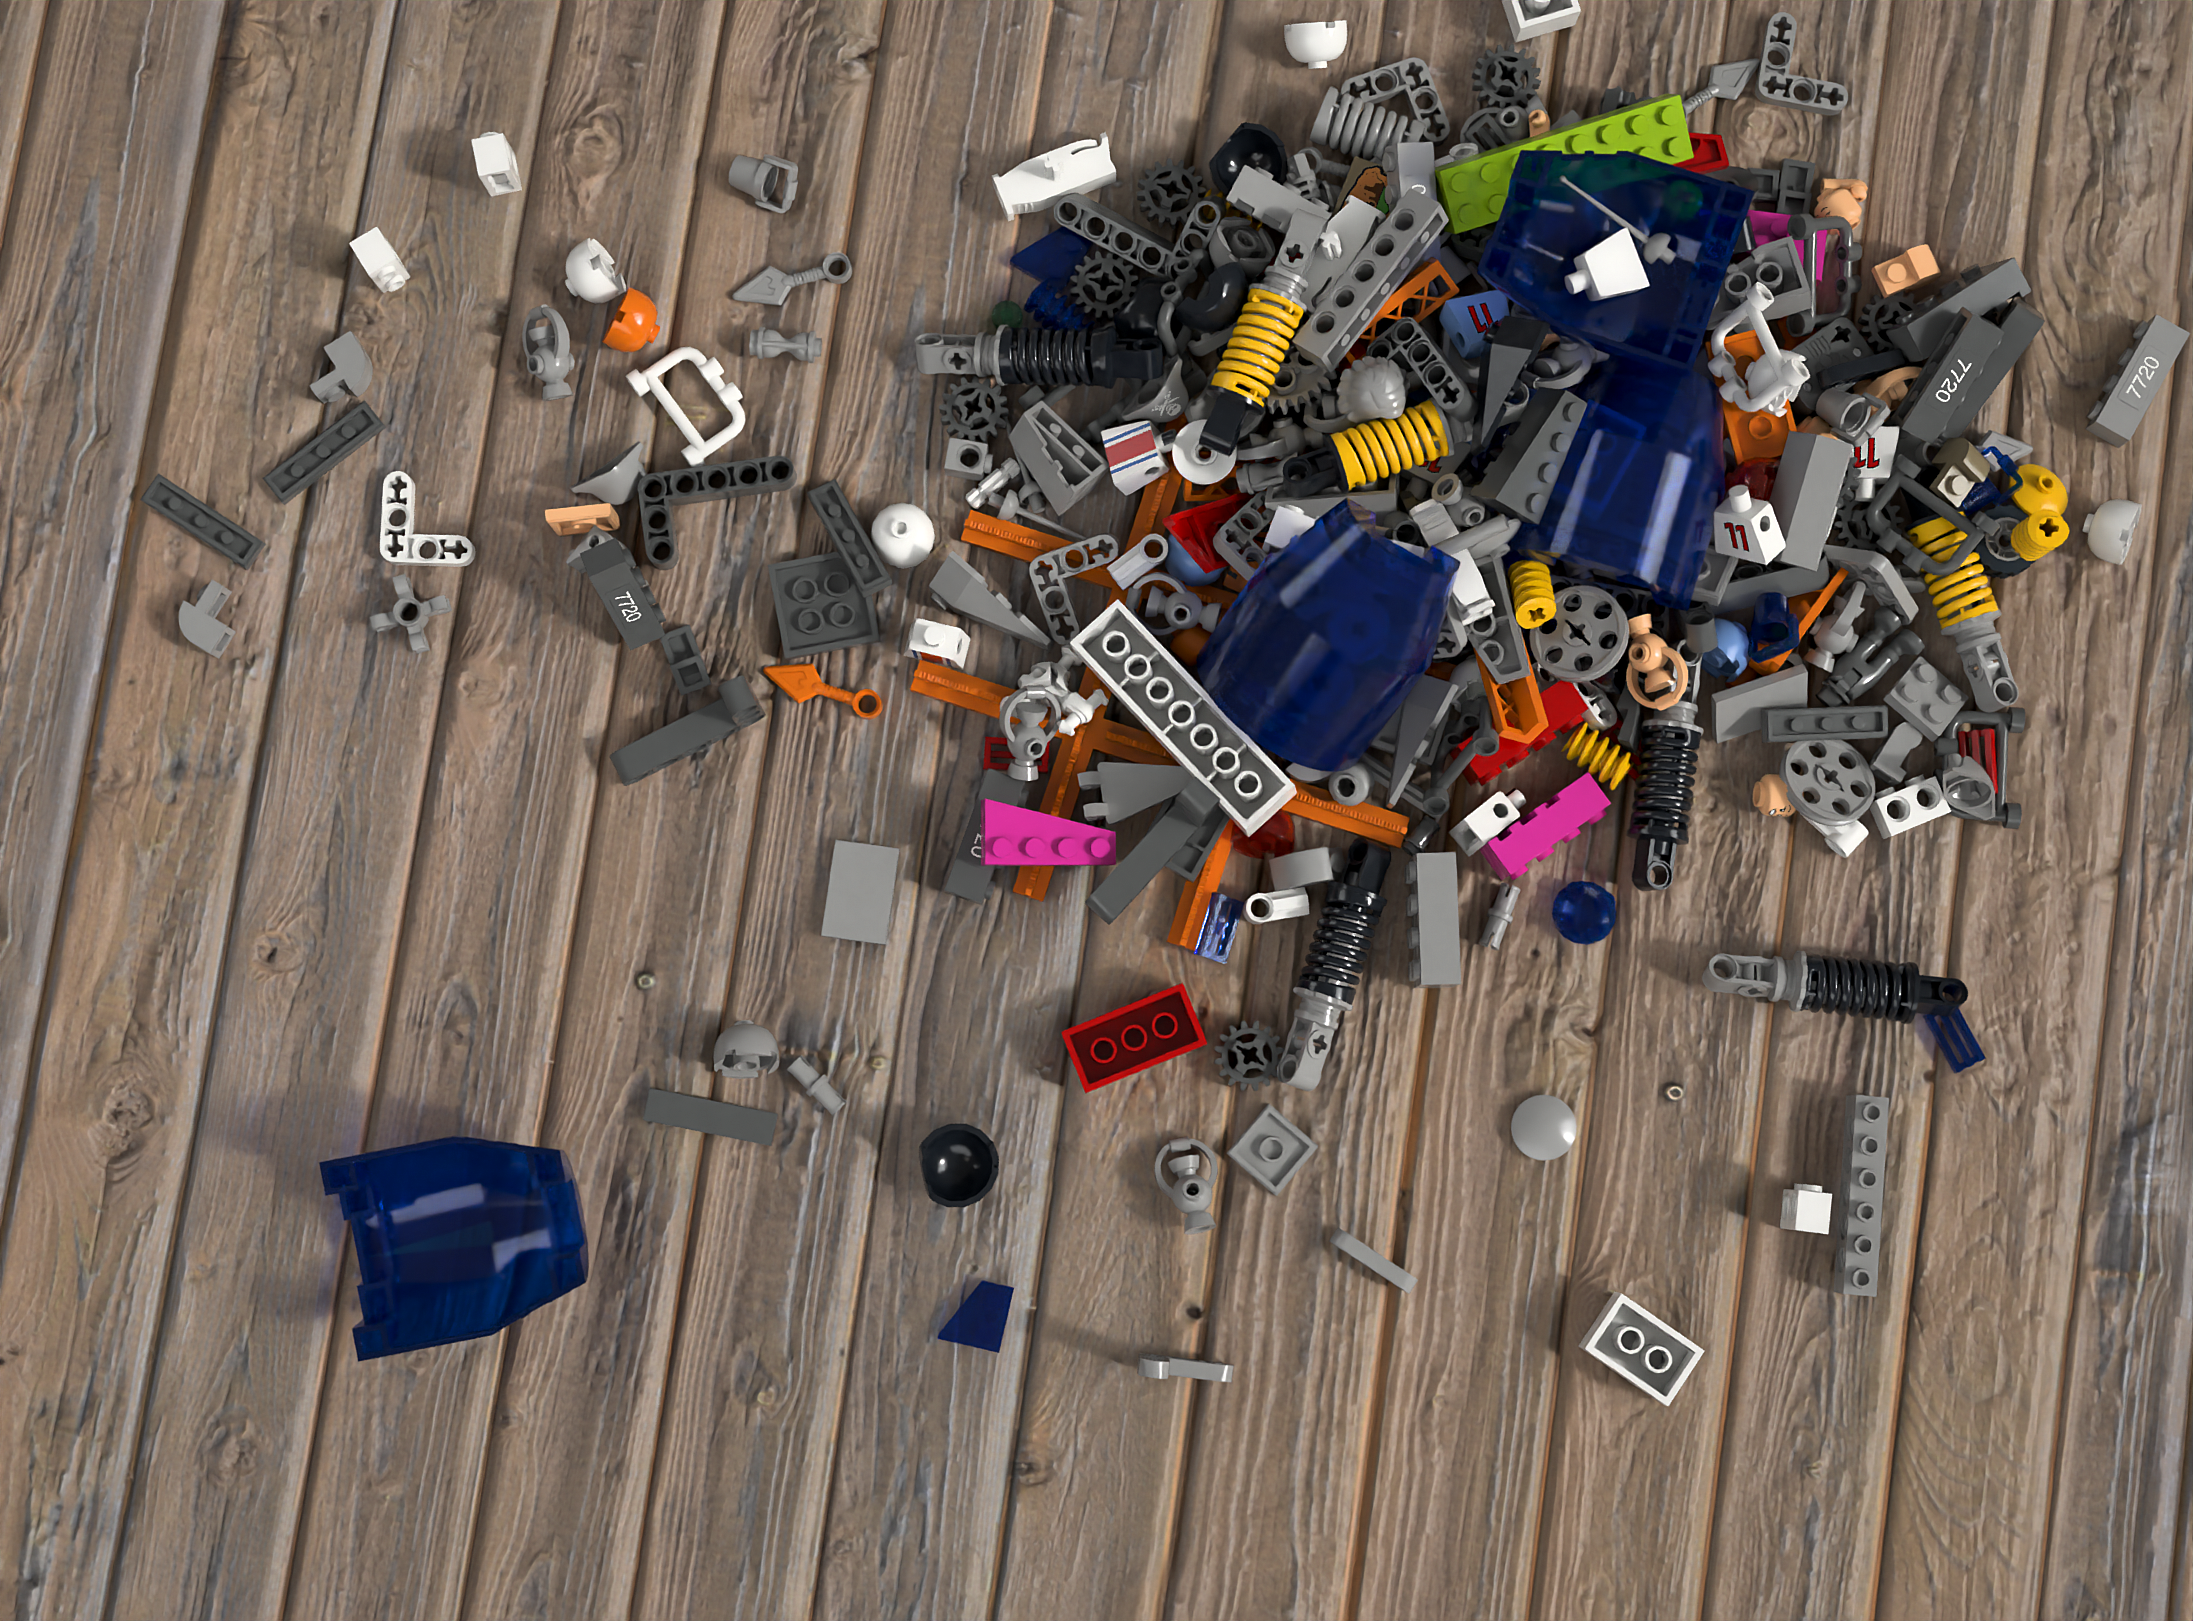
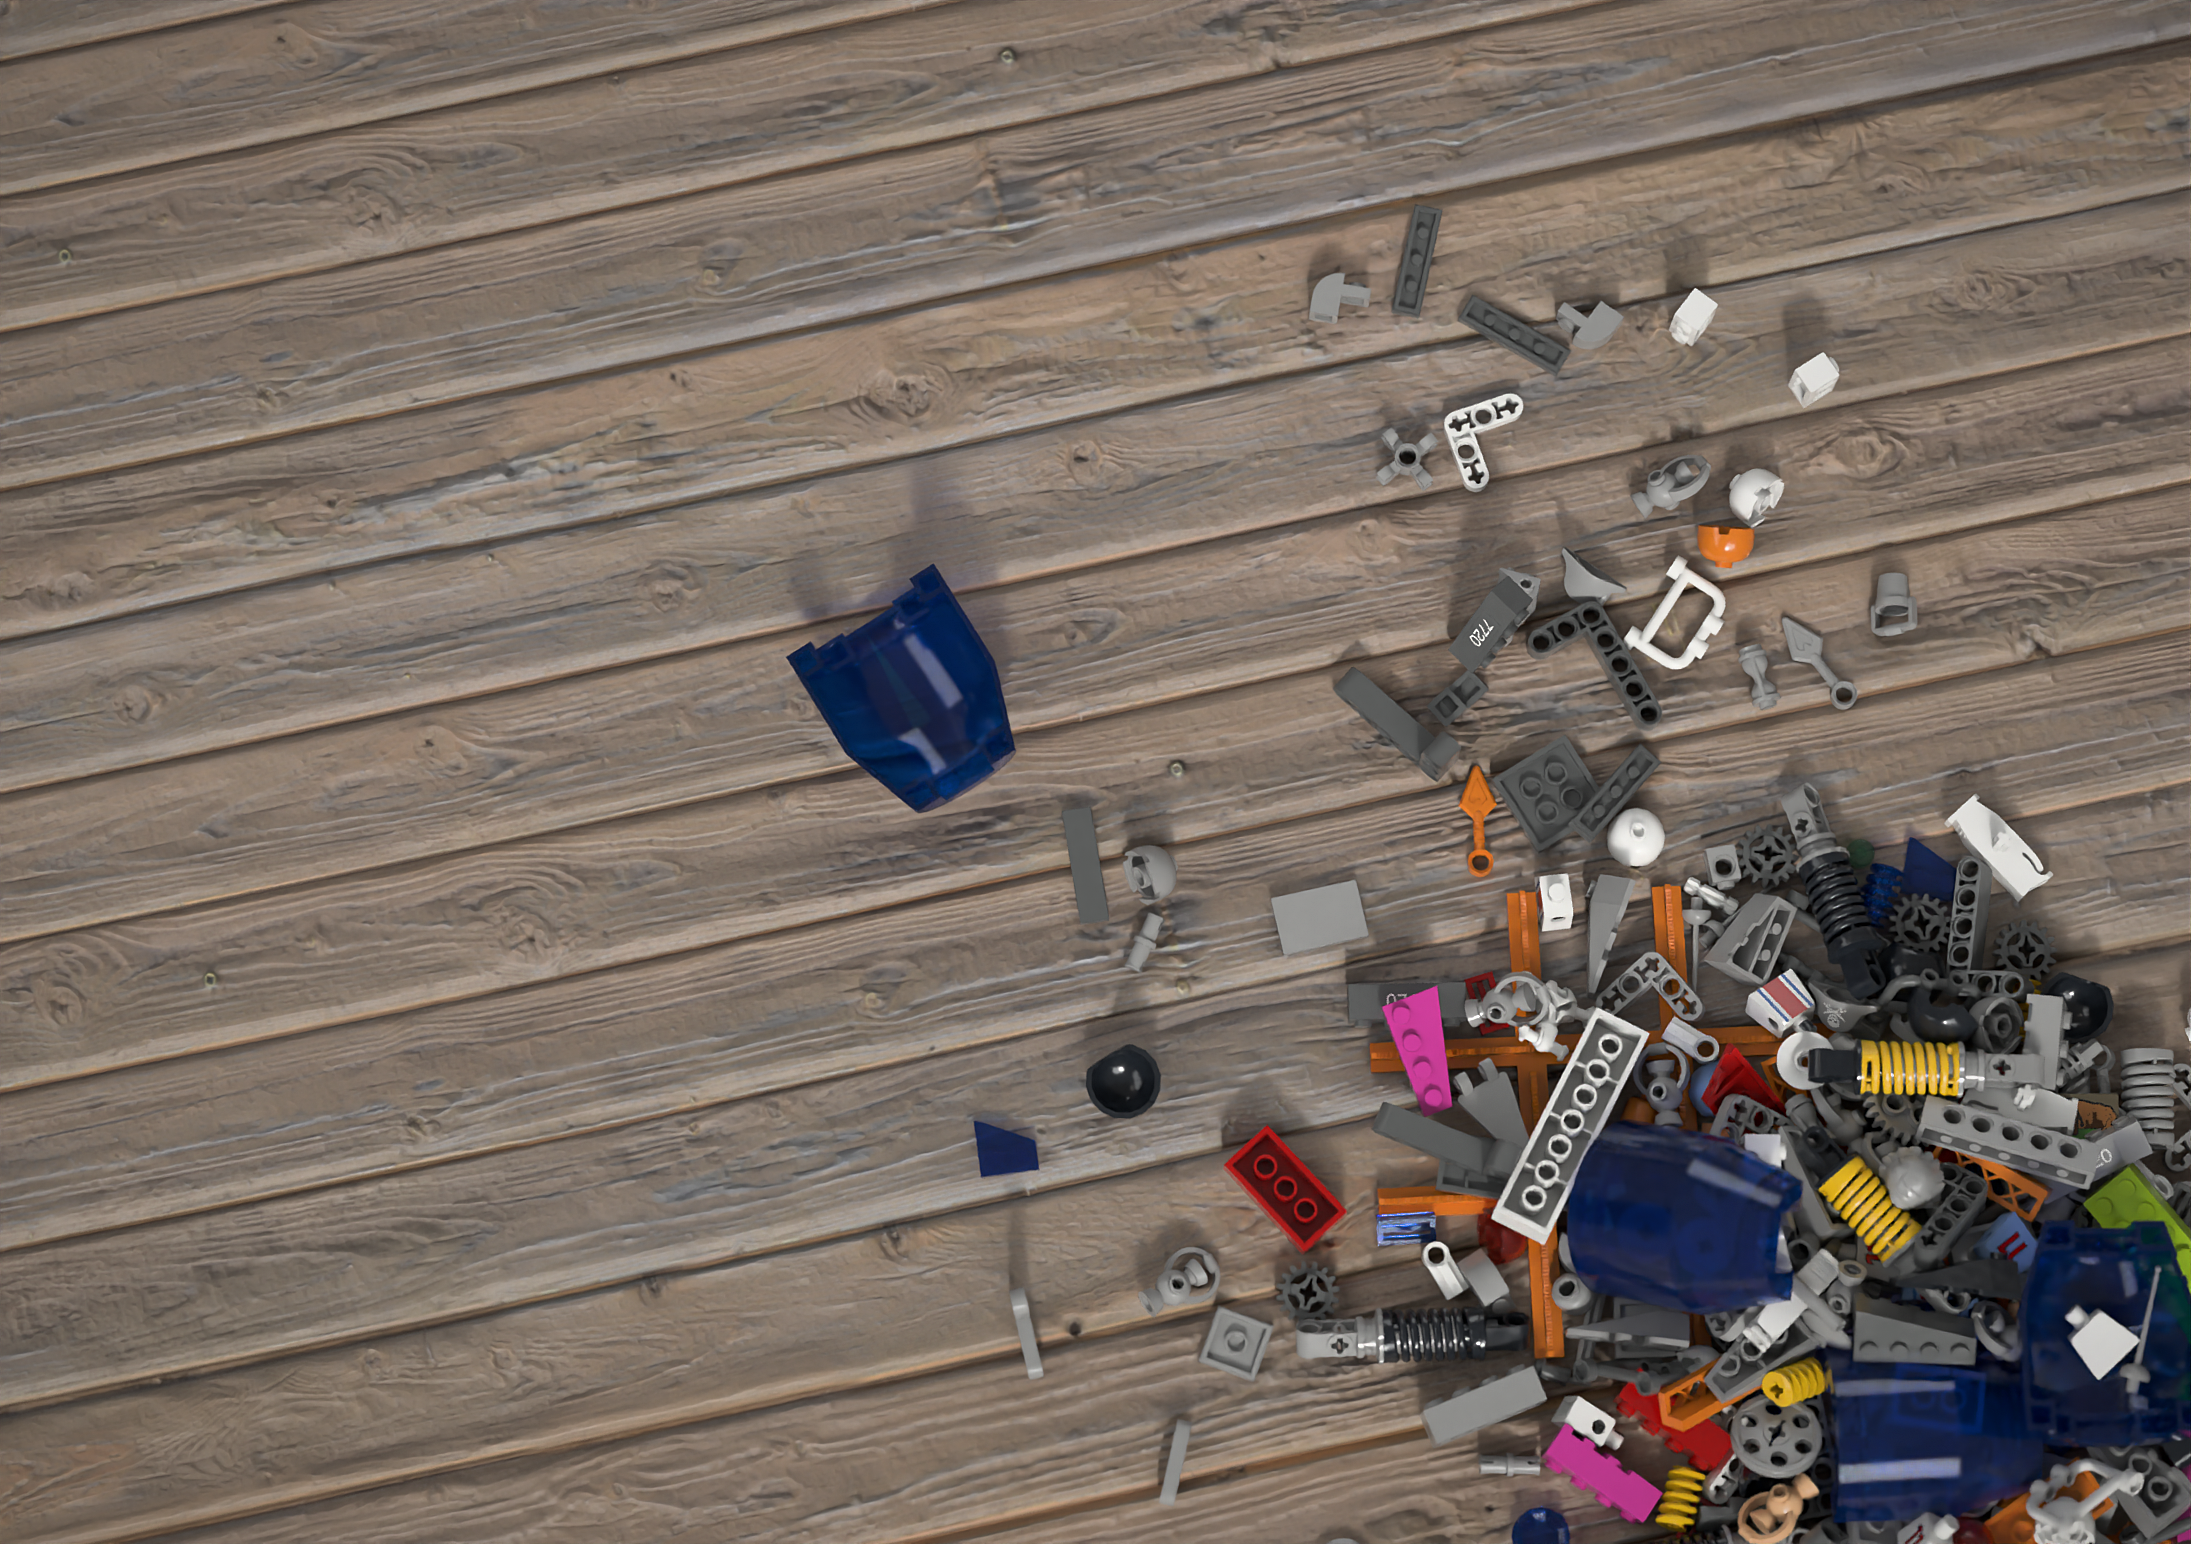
camera: 70 degrees right, 5 degrees down
(582, 519) = (1541, 567): light nougat tile -> none

